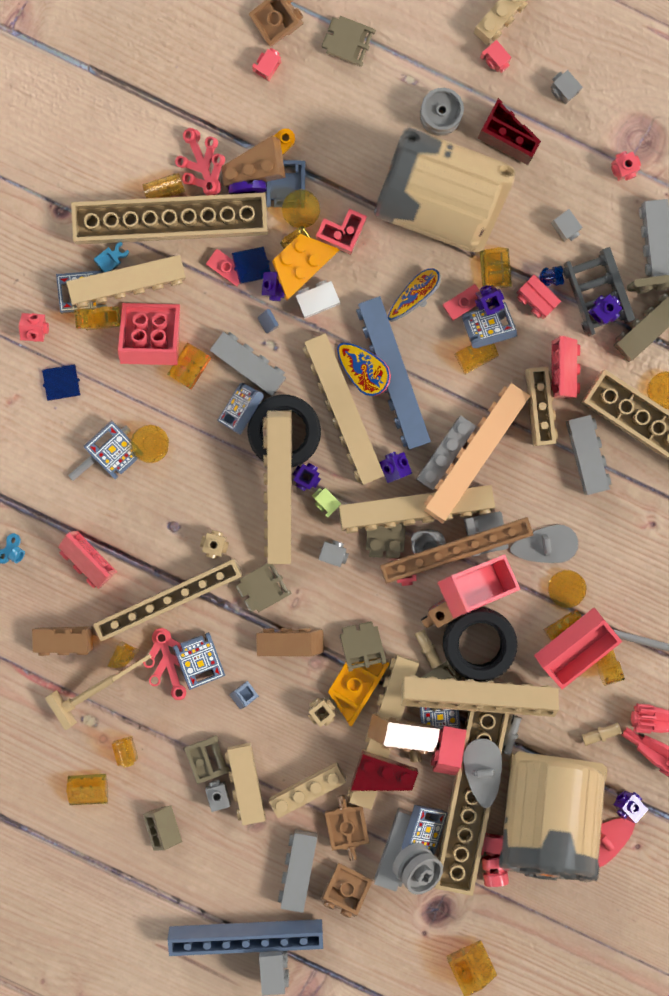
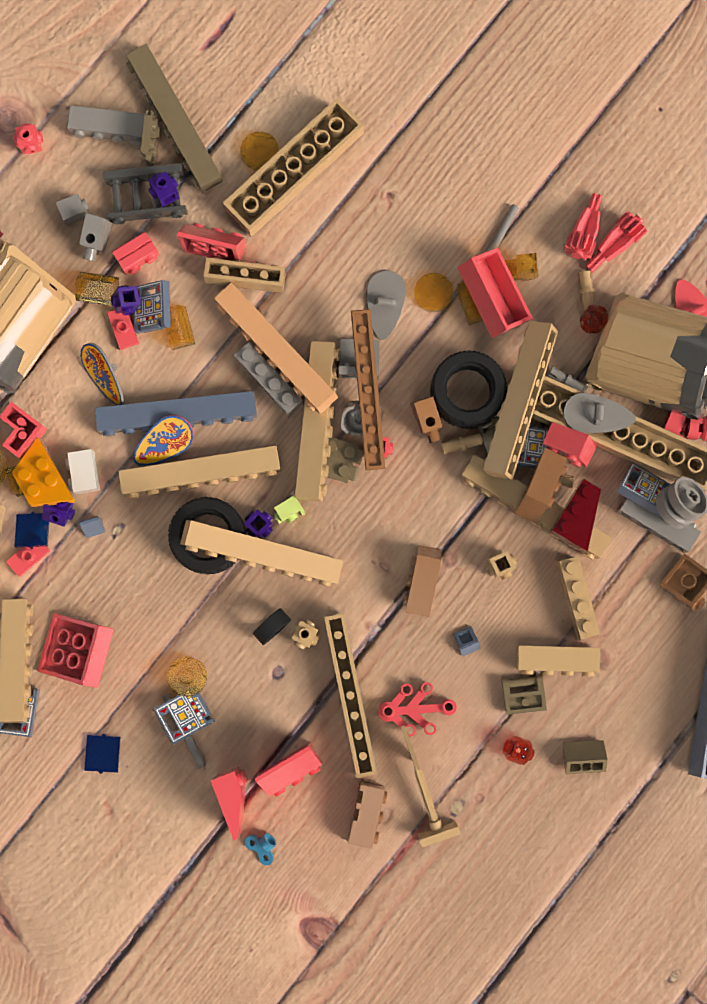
camera: 80 degrees left, 5 degrees down
(33, 327) = (37, 768): coral brick -> none
(54, 510) = (230, 792): none -> coral slope
(87, 789) = (527, 826): clear yellow brick -> none
(97, 318) = (46, 699): clear yellow brick -> none
(123, 655) = (397, 755): clear yellow brick -> none
(125, 751) = (497, 777): clear yellow brick -> none
(154, 766) = (518, 750): none -> clear red head
(190, 366) = (118, 616): clear yellow brick -> none
(198, 657) = (417, 678): sand blue container -> none
(214, 512) = (271, 626): none -> black tyre
(218, 795) = (563, 691): light grey brick -> none
(241, 407) = (171, 573): sand blue container -> none
(248, 364) = (130, 557): light grey brick -> none
(262, 588) = (361, 596): dark tan plate -> none
(299, 870) = (658, 626): light grey brick -> none
(333, 553) = (343, 515): light grey brick -> none
(347, 827) = (625, 567): medium nougat plate -> none
(354, 688) = (482, 524): light orange wing -> none
(362, 645) = (444, 508): dark tan plate -> none
(395, 466) = (270, 432): dark purple brick -> none
(478, 586) = (409, 375): coral piece -> none
(552, 276) = (118, 234): clear blue brick -> none
(553, 253) = (96, 228): none -> light grey torso
(575, 747) = (594, 319): none -> clear red head
(588, 455) = (304, 240): light grey brick -> none
(630, 806) = (665, 279): brick -> none

